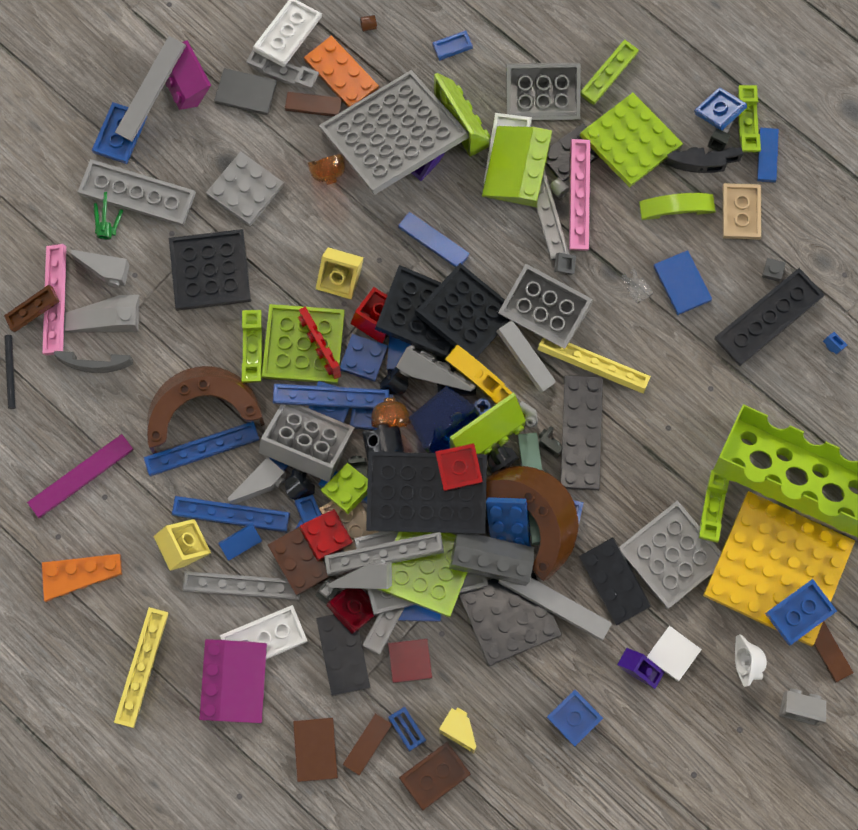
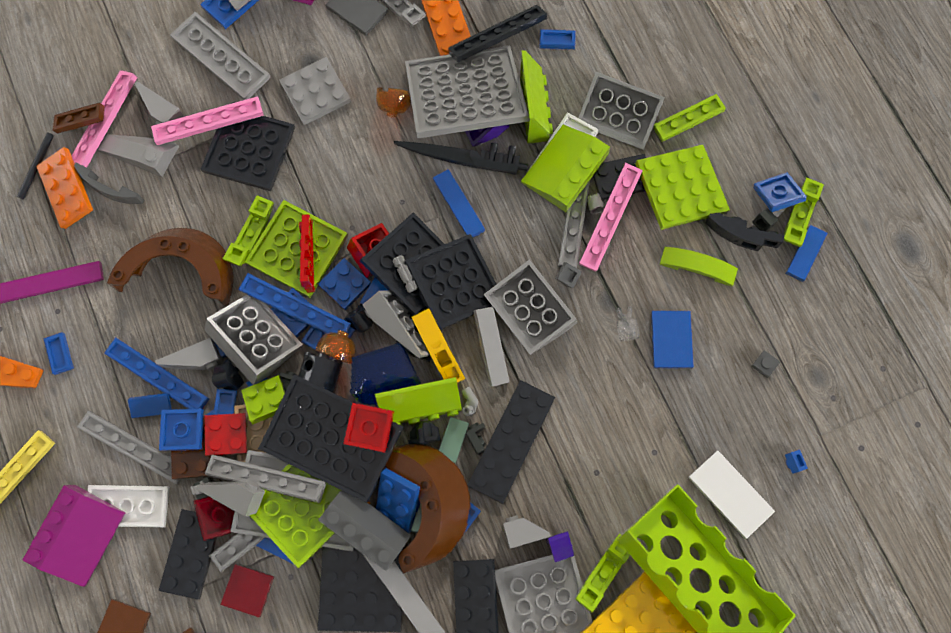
camera: 25 degrees right, 0 degrees up
(52, 380) = (64, 188): none -> orange plate
(104, 229) = (176, 76): green plant -> none
(127, 533) = (58, 353): none -> blue tile
(161, 259) = (207, 120): none -> bright pink plate
(181, 544) = (98, 384): light yellow slope -> none
(201, 448) = (160, 304): blue tile -> none
(285, 546) = (181, 429): none -> blue plate
(313, 104) = (409, 41): reddish brown tile -> none
(339, 273) = (359, 197): light yellow slope -> none
(395, 63) = (497, 33): none -> black plate
(421, 323) = (405, 273): none -> light grey axle
(439, 189) = (485, 160): none -> black piece
(479, 403) = (427, 372): blue bush -> none
(597, 364) = (555, 383): light yellow plate -> none
(628, 503) = (522, 532): none -> light grey slope
(665, 500) = (560, 546): none -> dark purple slope
(742, 211) = (758, 296): tan plate -> none
(769, 317) = (741, 407): black plate -> none
(792, 395) = (731, 494): none -> white tile

